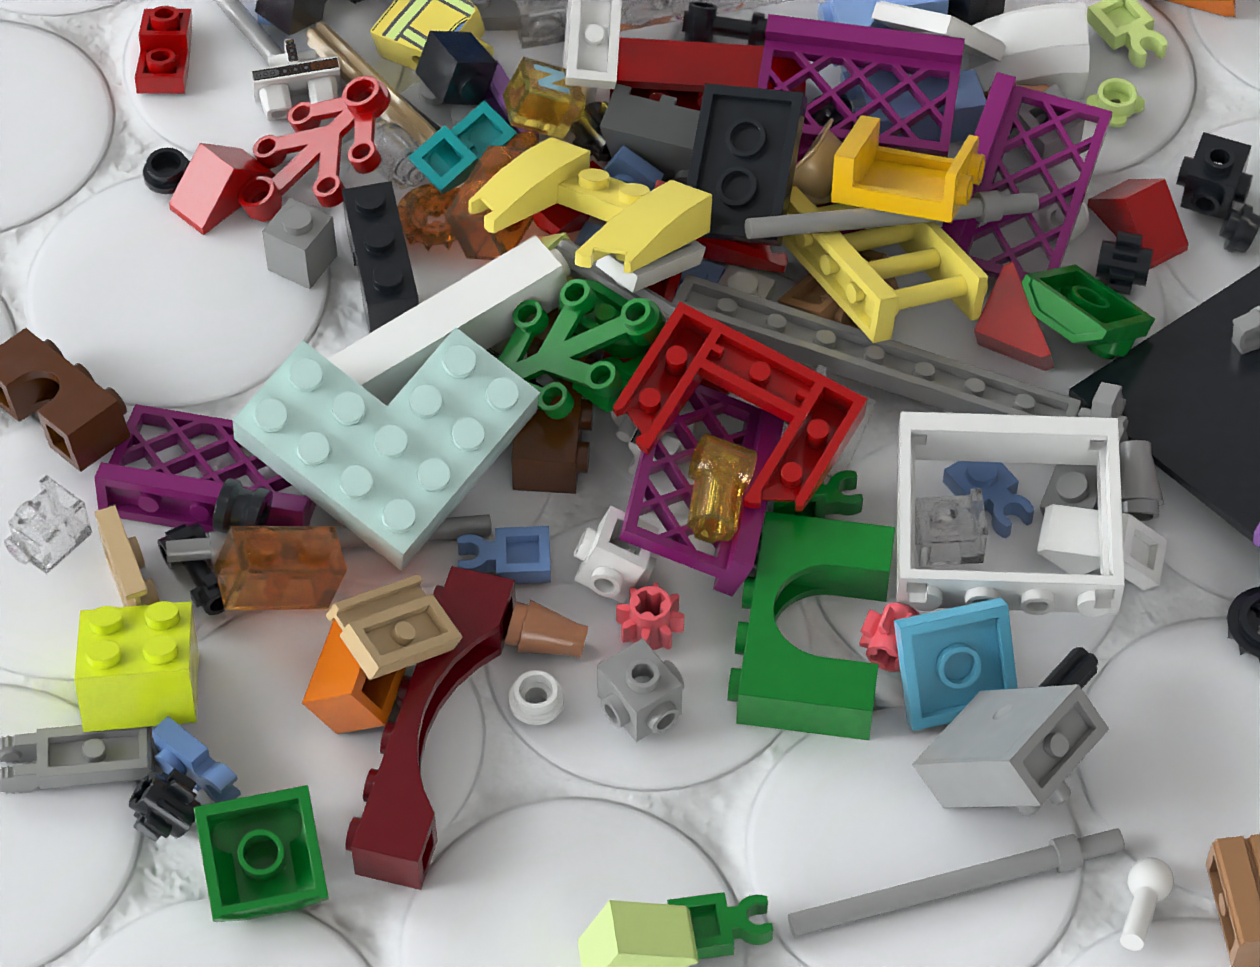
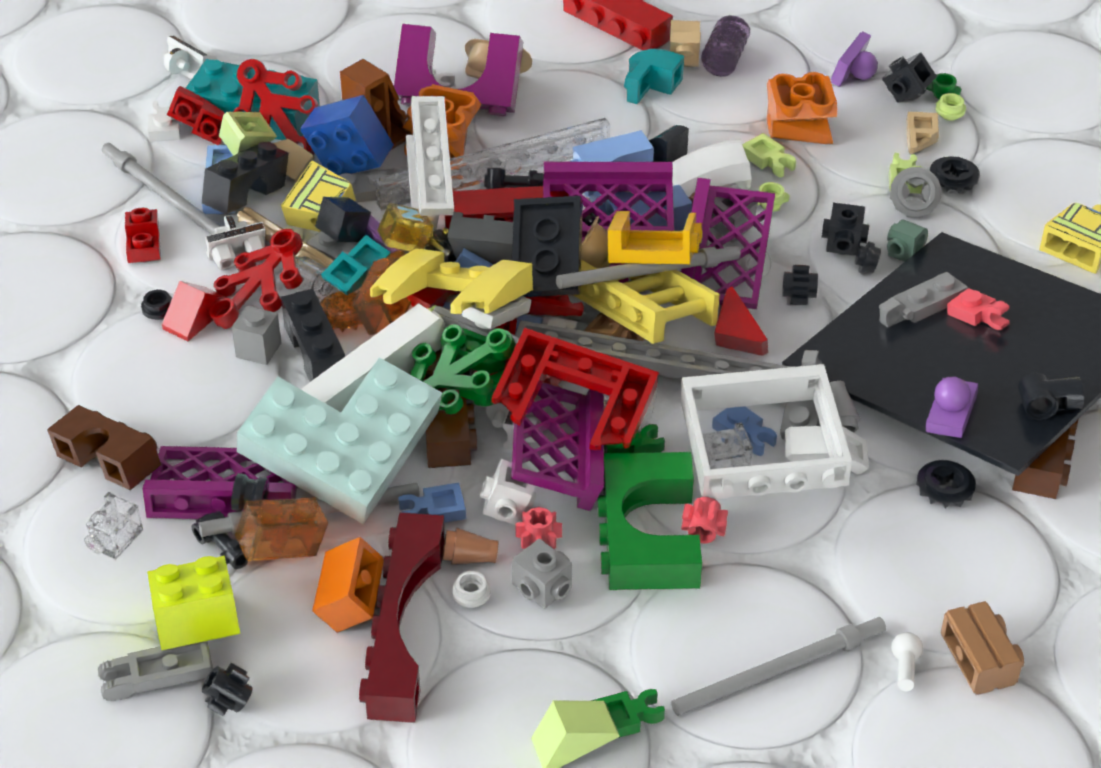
camera: 10 degrees left, 10 degrees down
(124, 560) = (170, 537): tan plate -> none
(188, 755) = (232, 650): medium blue plate -> none
(261, 855) = (301, 711): green slope -> none
(394, 627) = (370, 549): tan plate -> none
(720, 479) = (571, 436): clear yellow piece -> none
(928, 22) = (681, 169): white plate -> none
(952, 658) = (750, 528): medium azure plate -> none
(1017, 742) = (803, 569): light grey piece -> none
(1086, 310) = (782, 312): green slope -> none
(1145, 210) = (805, 251): red slope -> none

